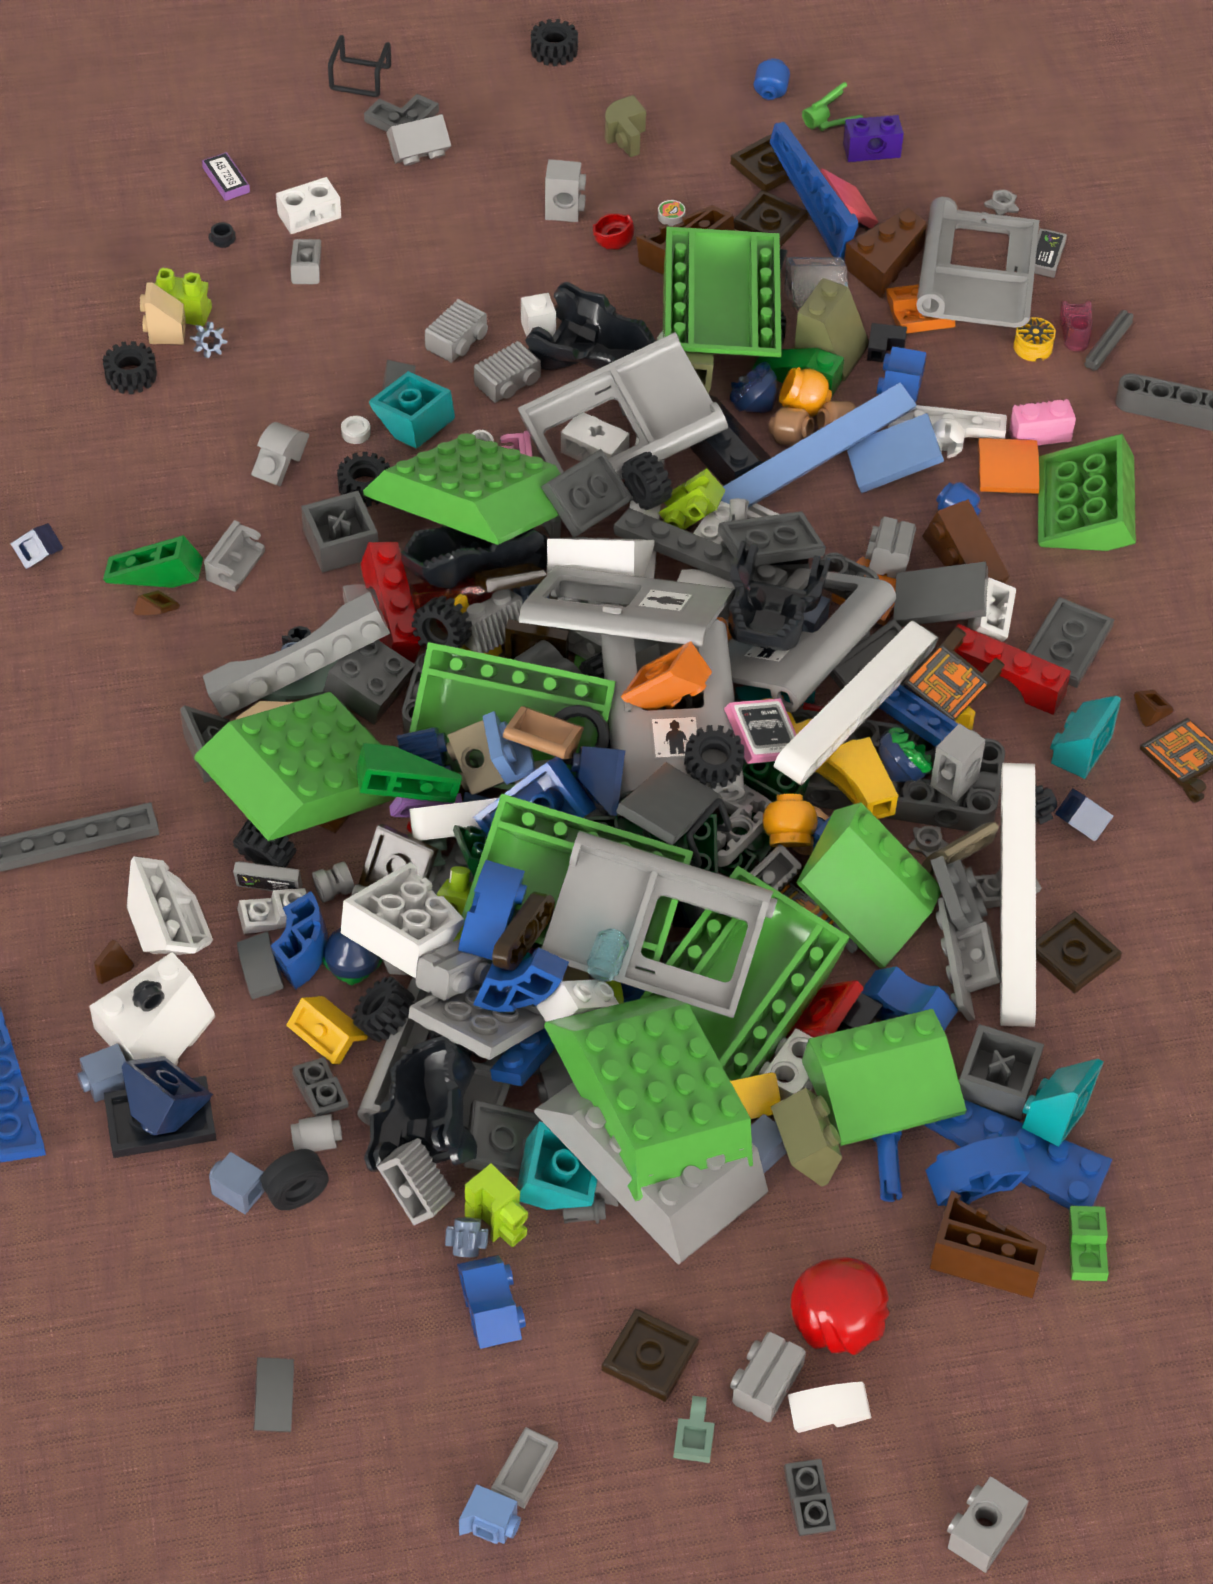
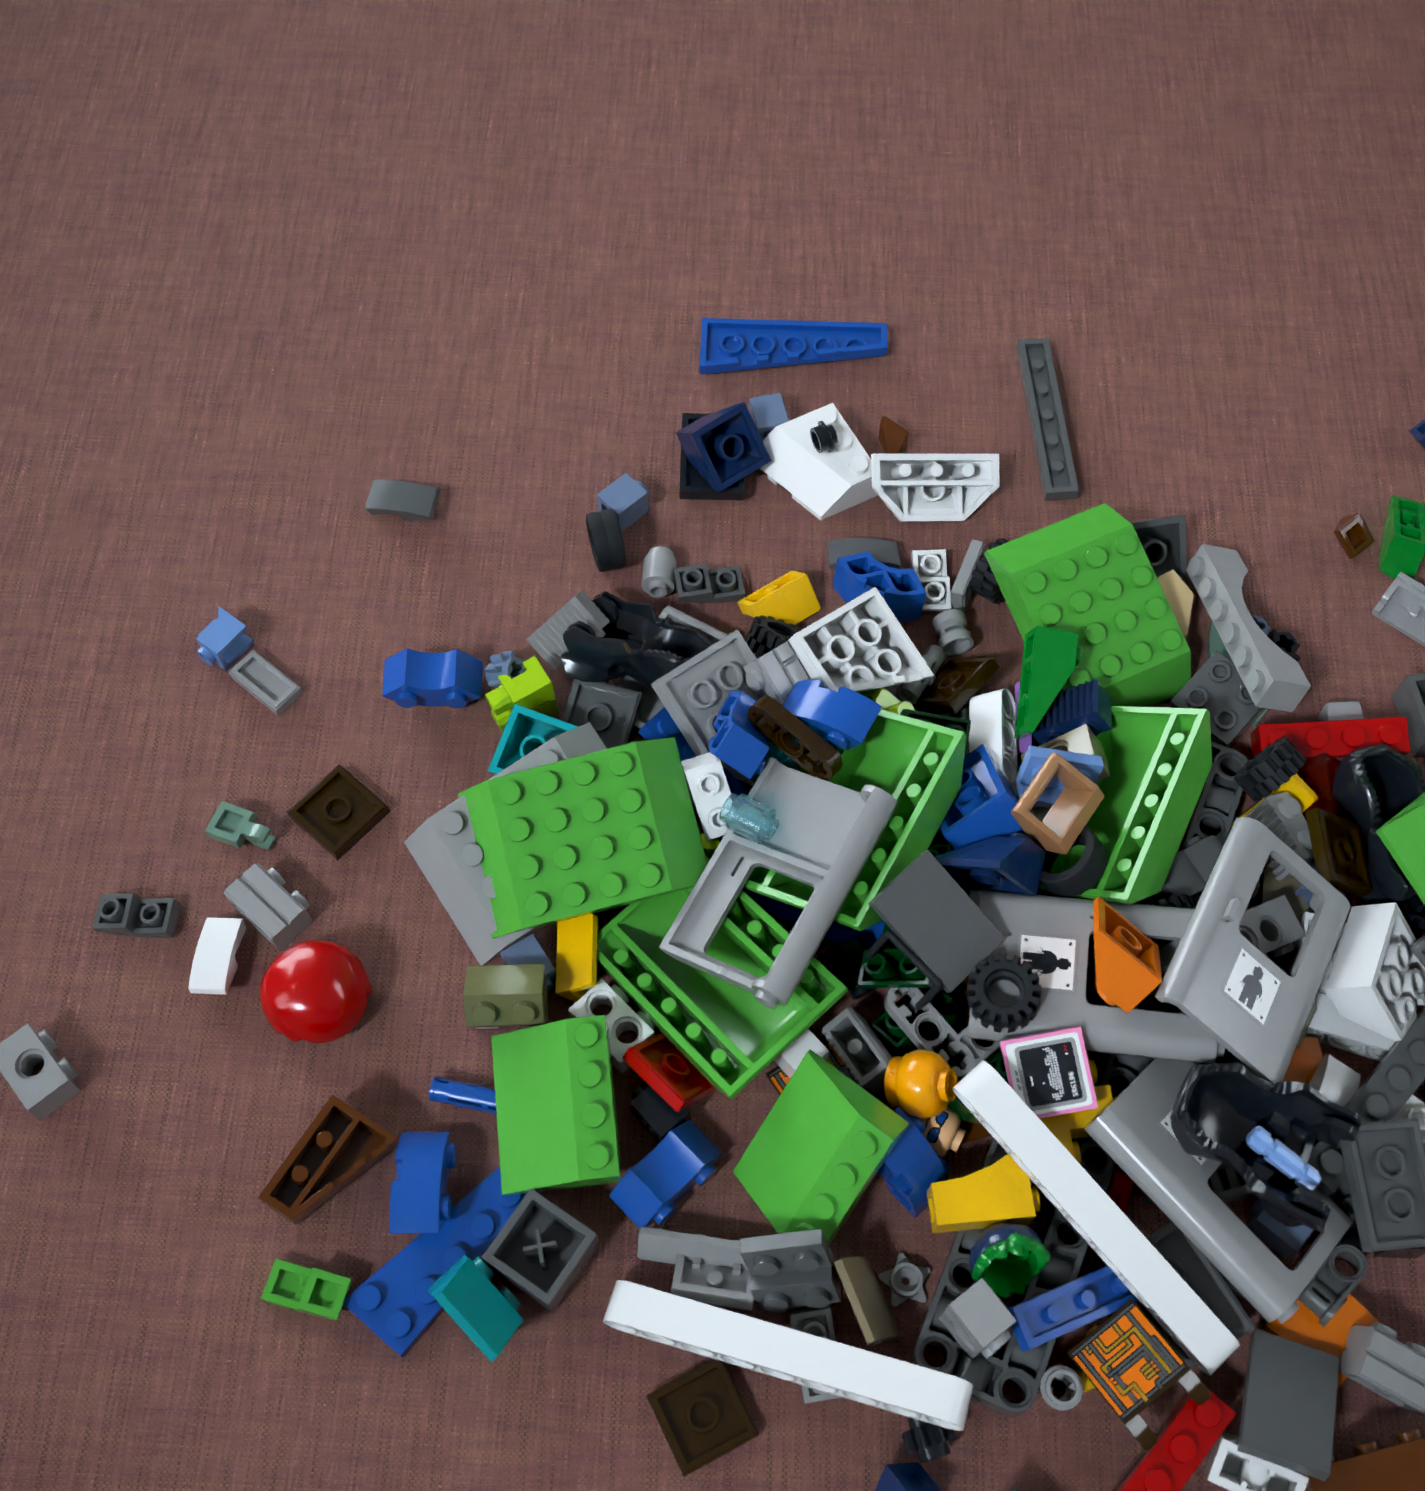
camera: 105 degrees right, 10 degrees up
(781, 590) = (1283, 1158): none -> light blue axle
(979, 720) = (1071, 1387): none -> light grey cone

